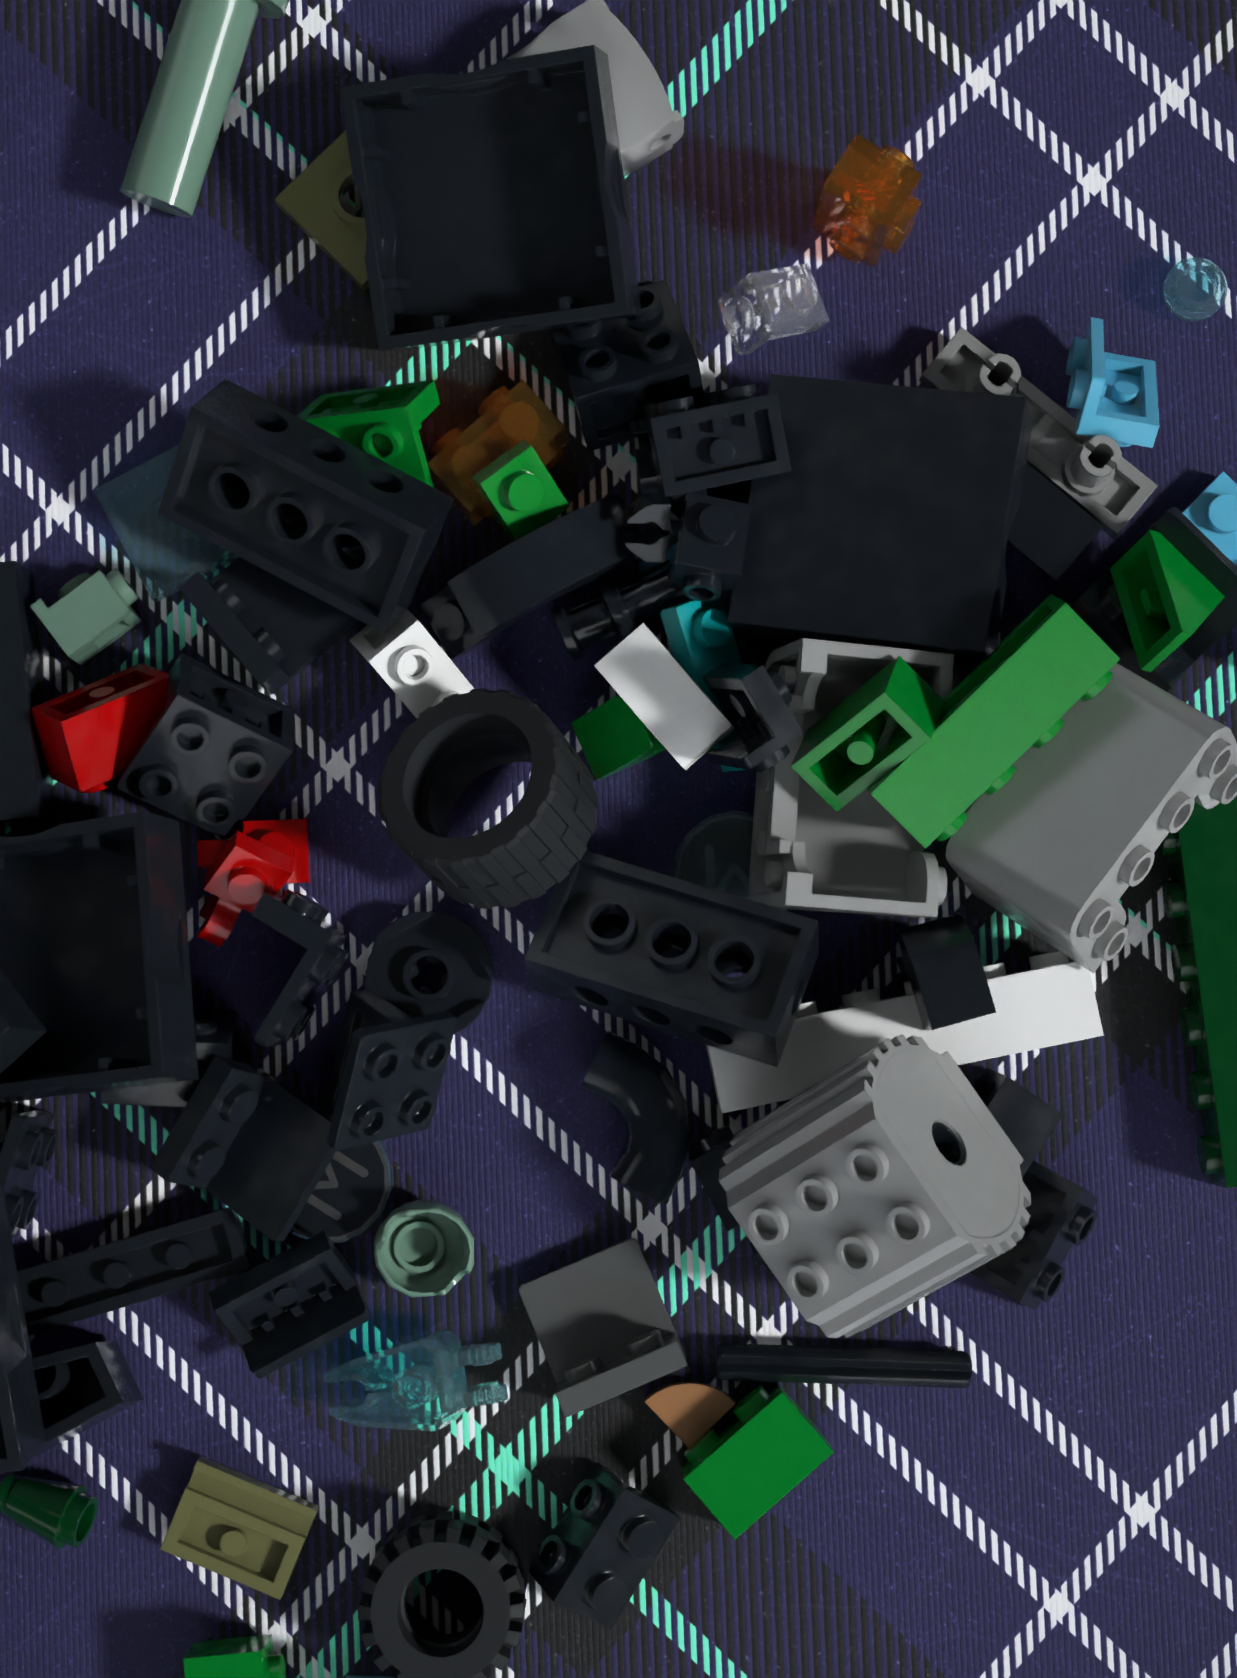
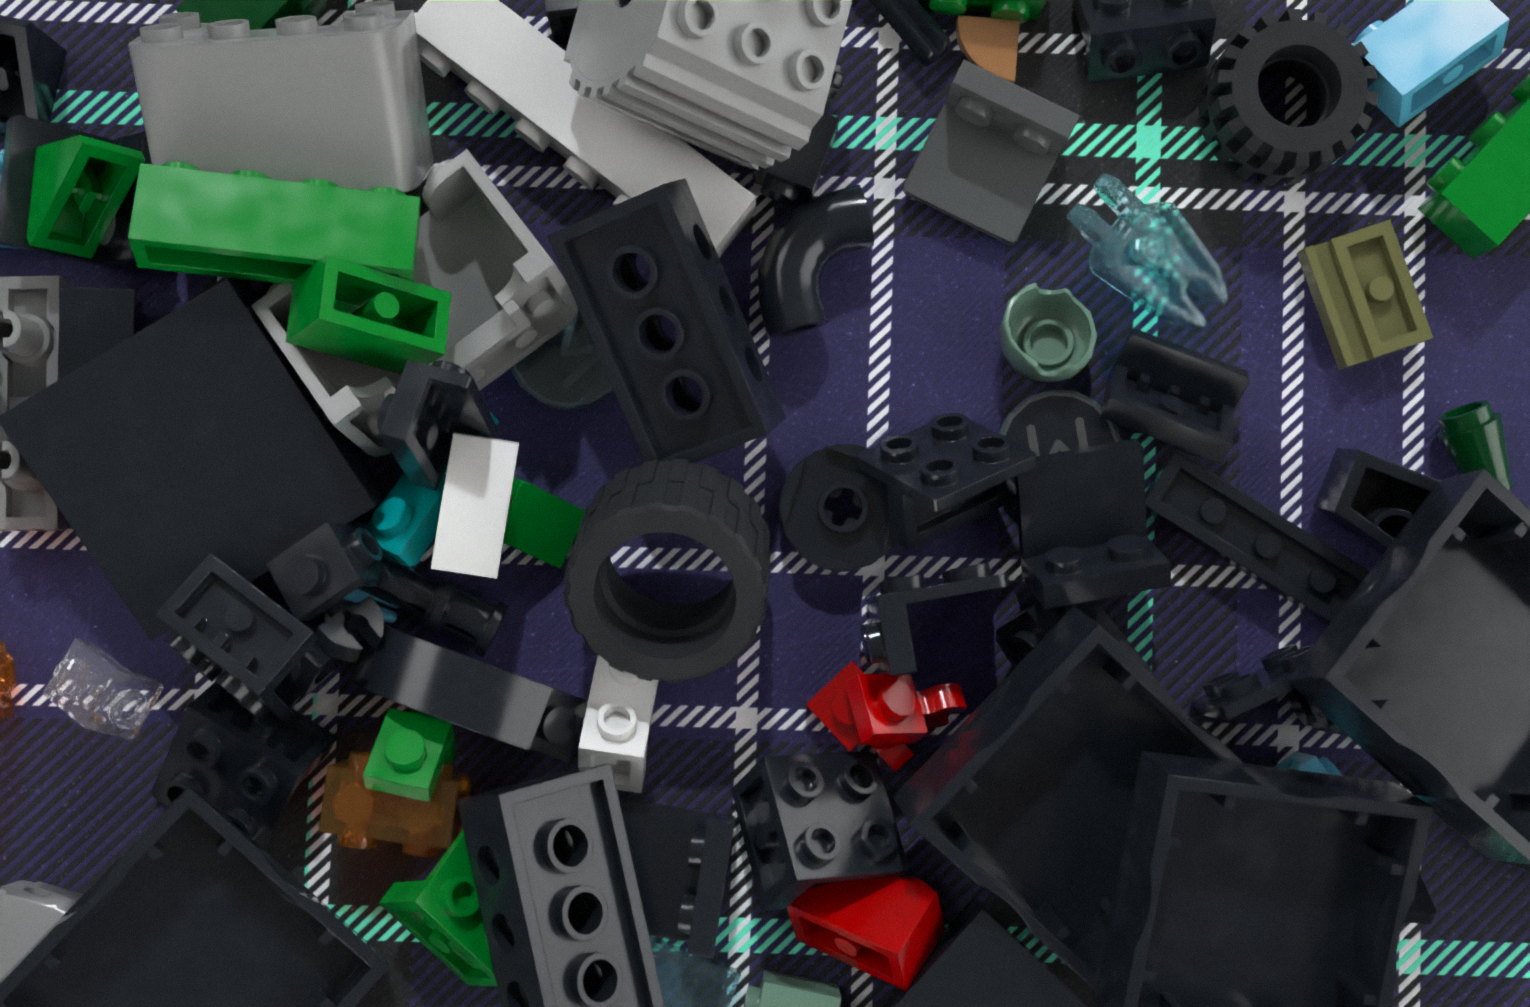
camera: 135 degrees left, 0 degrees up
(944, 972) = (507, 115): black brick -> none

